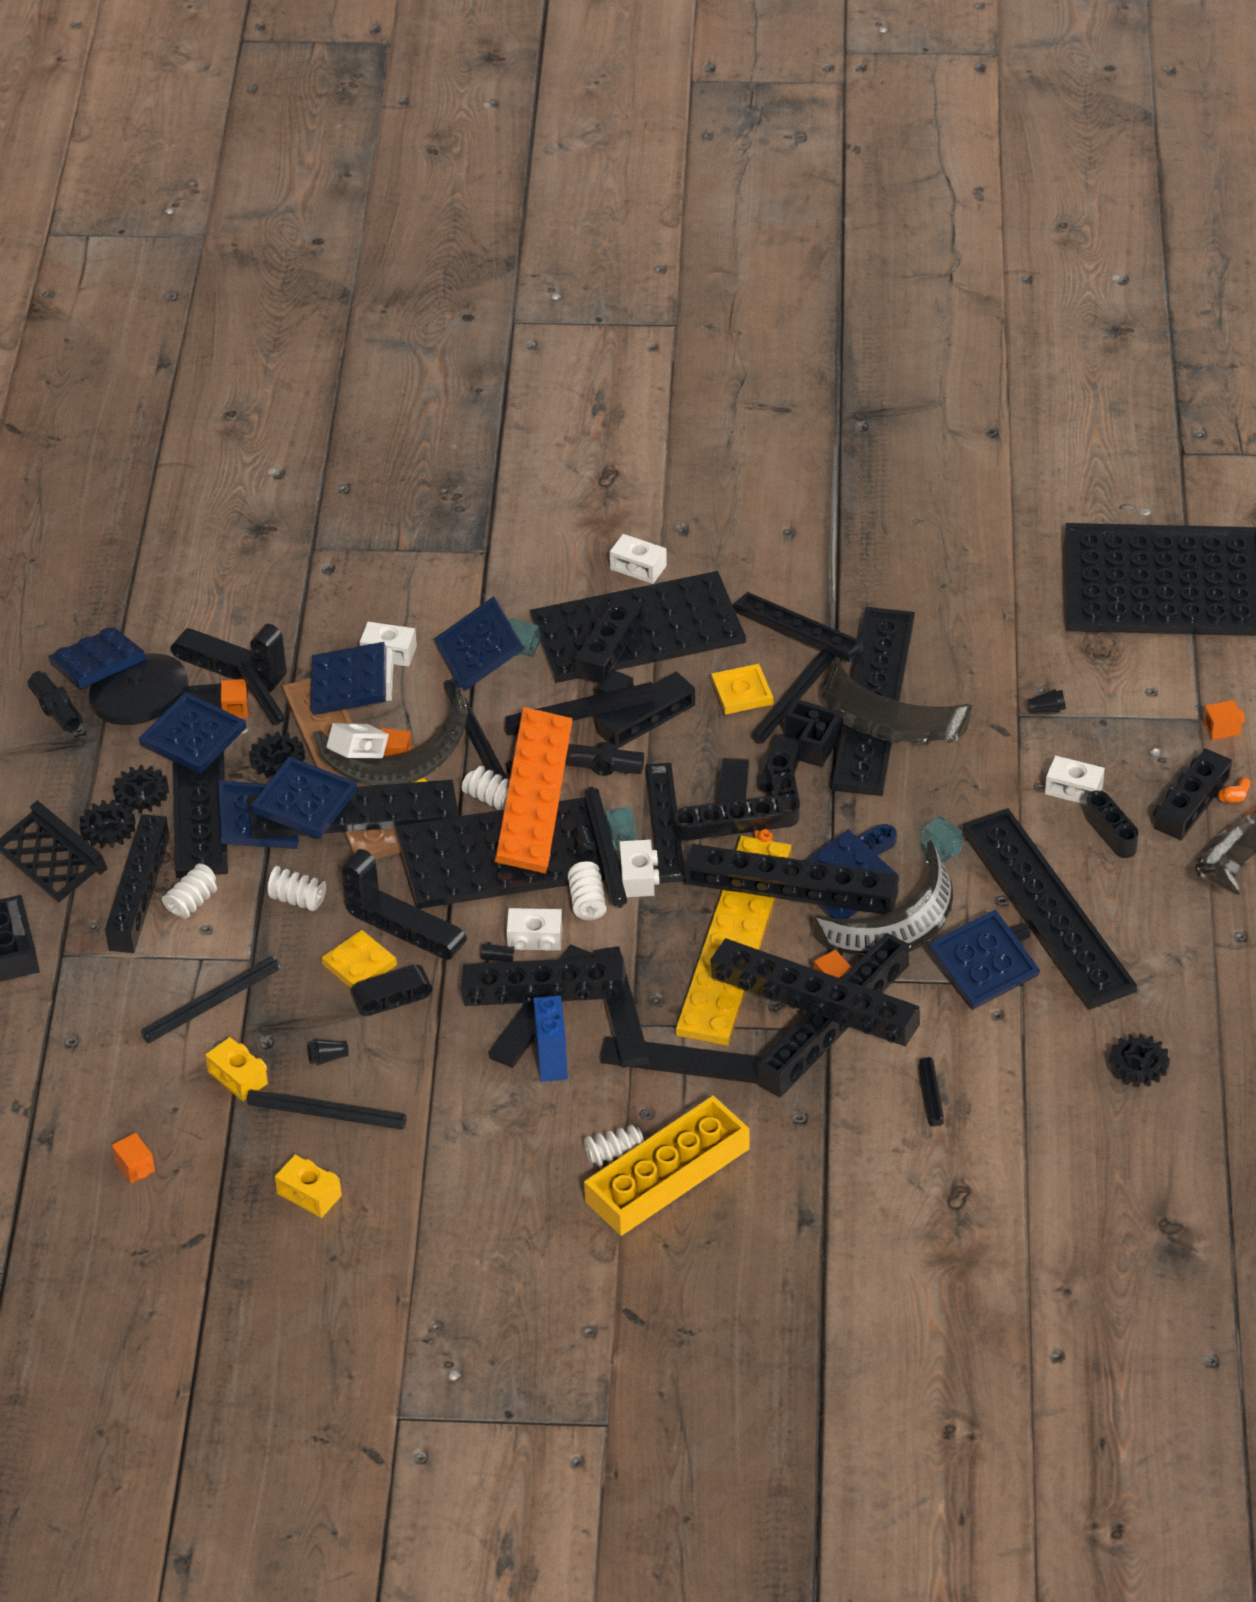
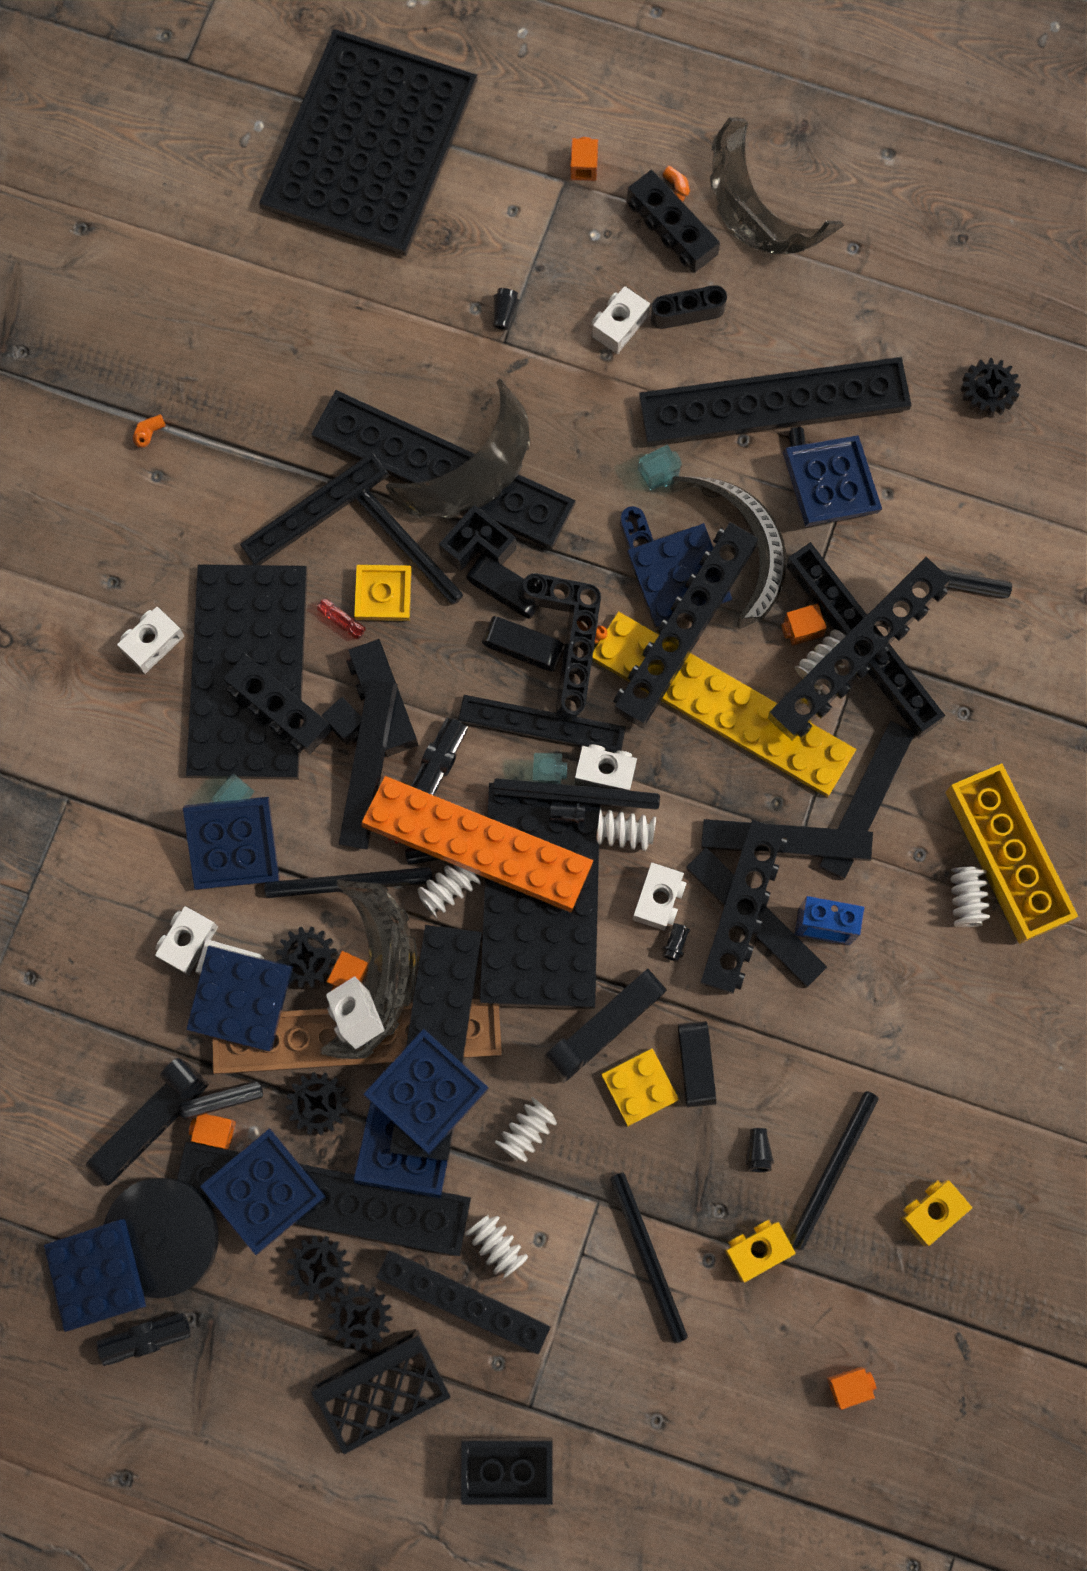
camera: 75 degrees left, 30 degrees up
(400, 715) = (320, 955): none -> black gear
(709, 666) = (341, 618): none -> clear red axle
(824, 511) = (145, 429): none -> orange arm

